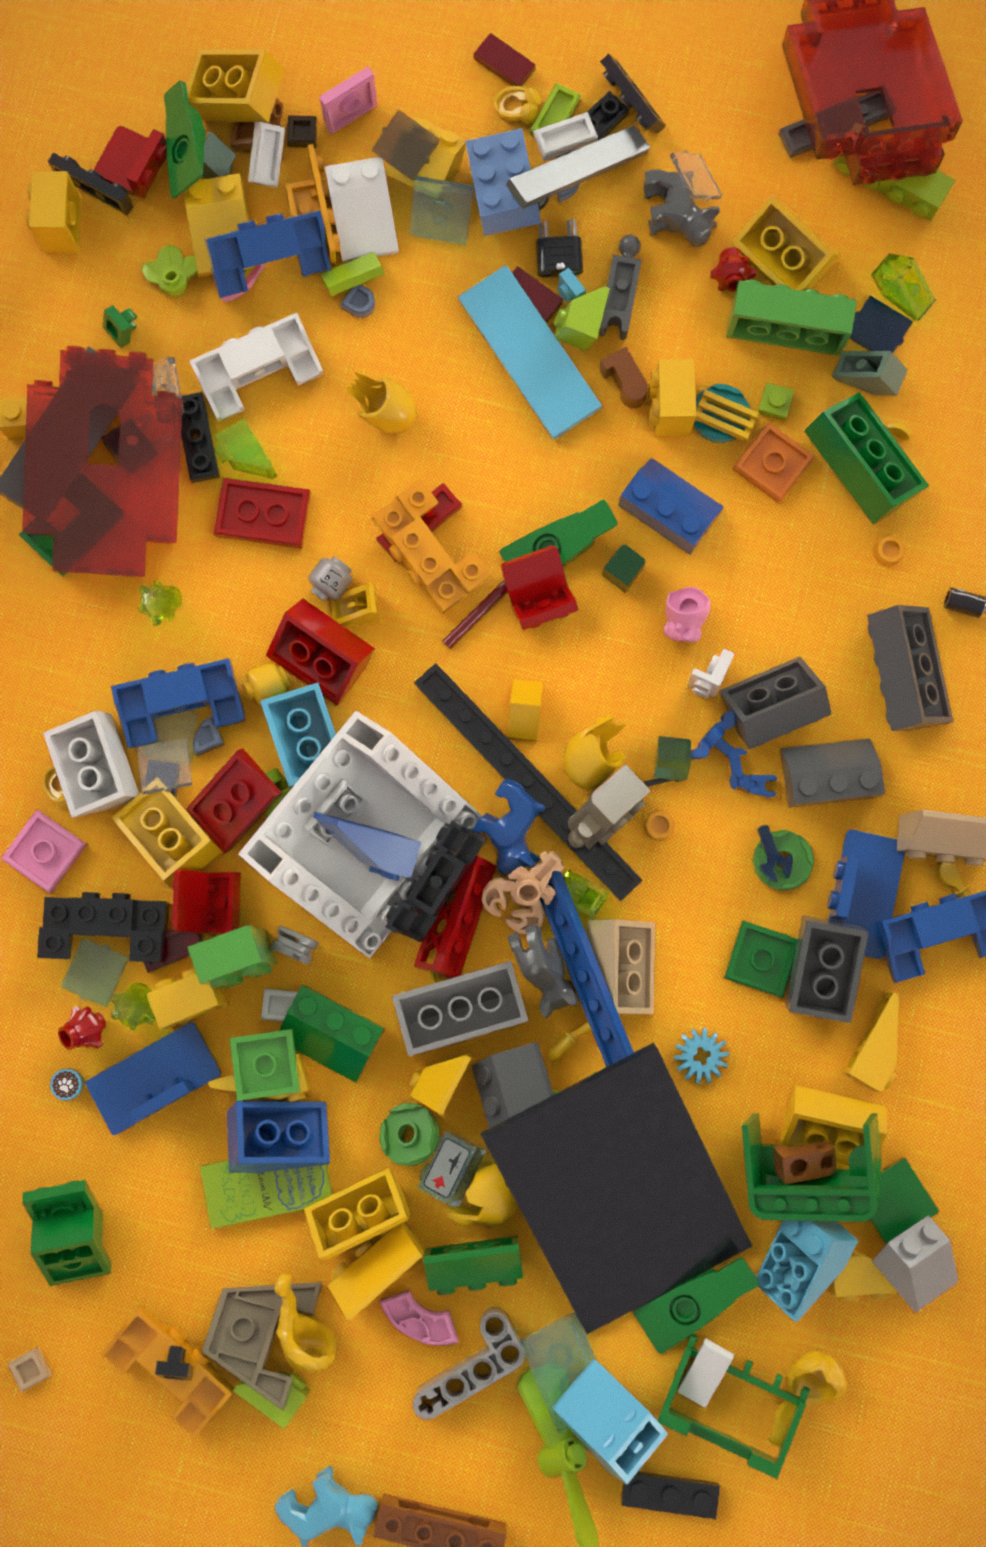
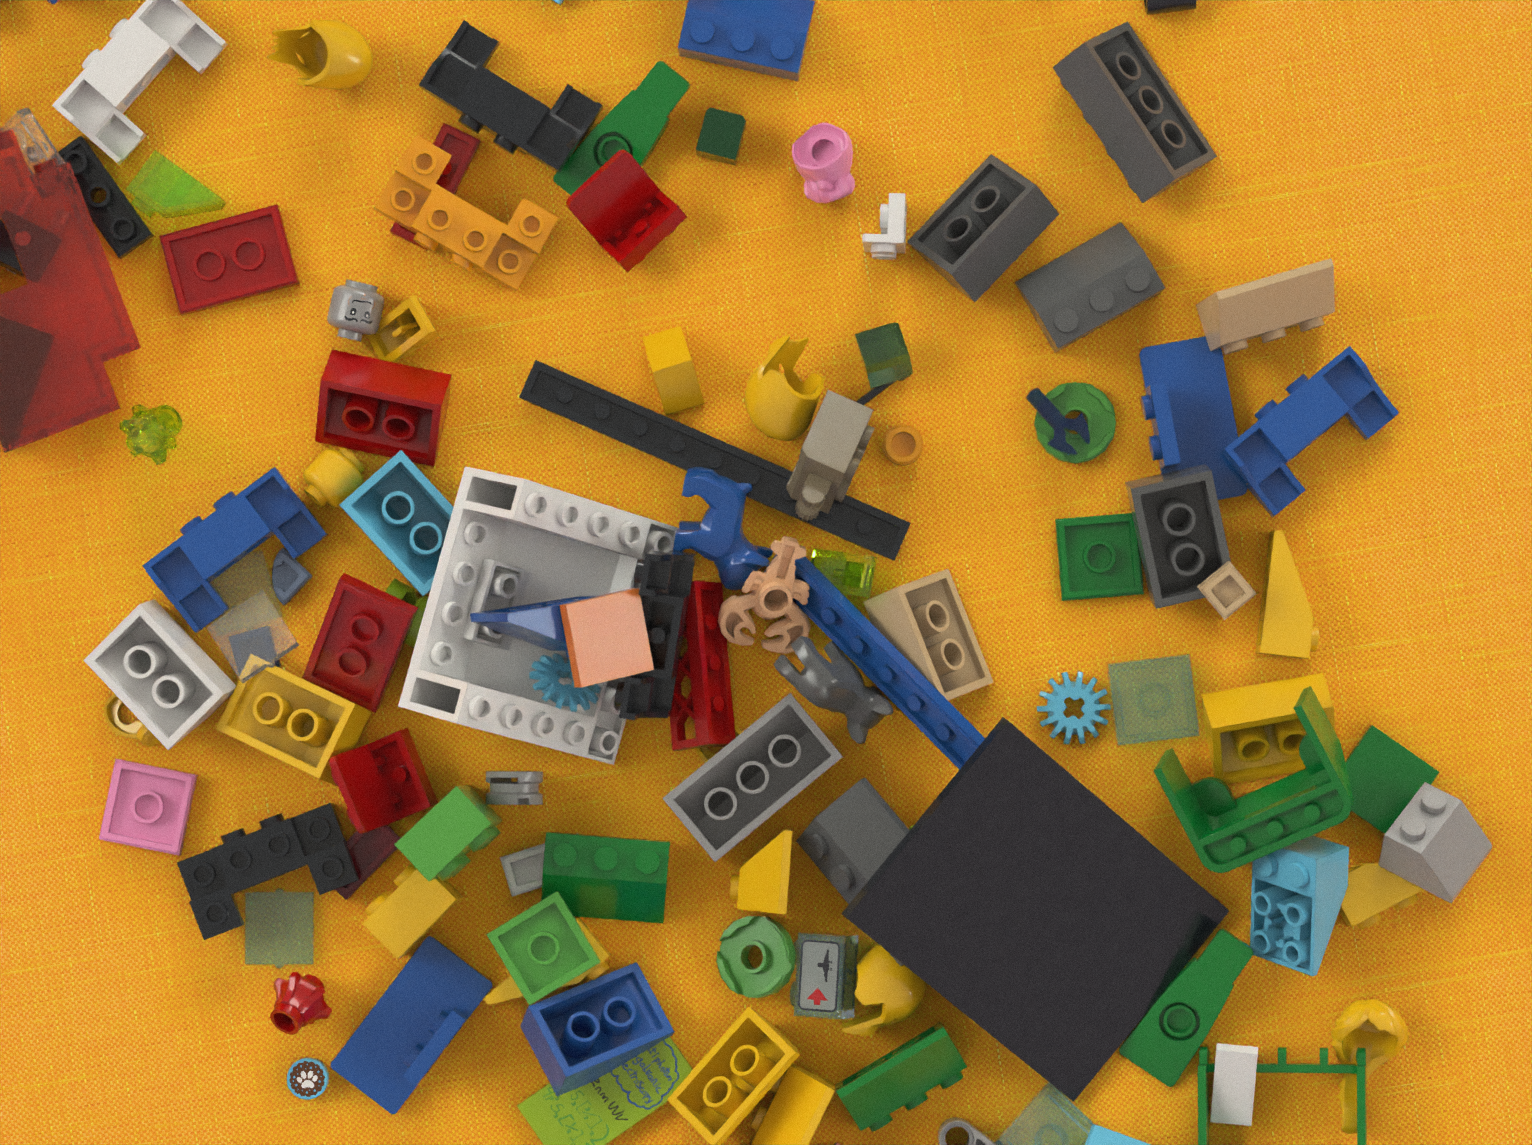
camera: 20 degrees left, 5 degrees up
(133, 1006) = (349, 947): clear neon green rock -> none
(350, 877) = (549, 673): none -> medium azure gear
(400, 867) = (606, 637): none -> orange tile
(475, 615) = (559, 276): dark red bar -> none
(486, 489) = (501, 108): none -> black bracket
(567, 1042) = (901, 762): yellow piece -> none
(752, 783) = (997, 342): blue piece -> none
(759, 1074) = (1153, 699): none -> clear light blue tile
(804, 1161) = (1249, 781): dark orange leg -> none
(844, 1020) = (1226, 590): none -> tan tile
(951, 877) = (1292, 355): yellow piece -> none

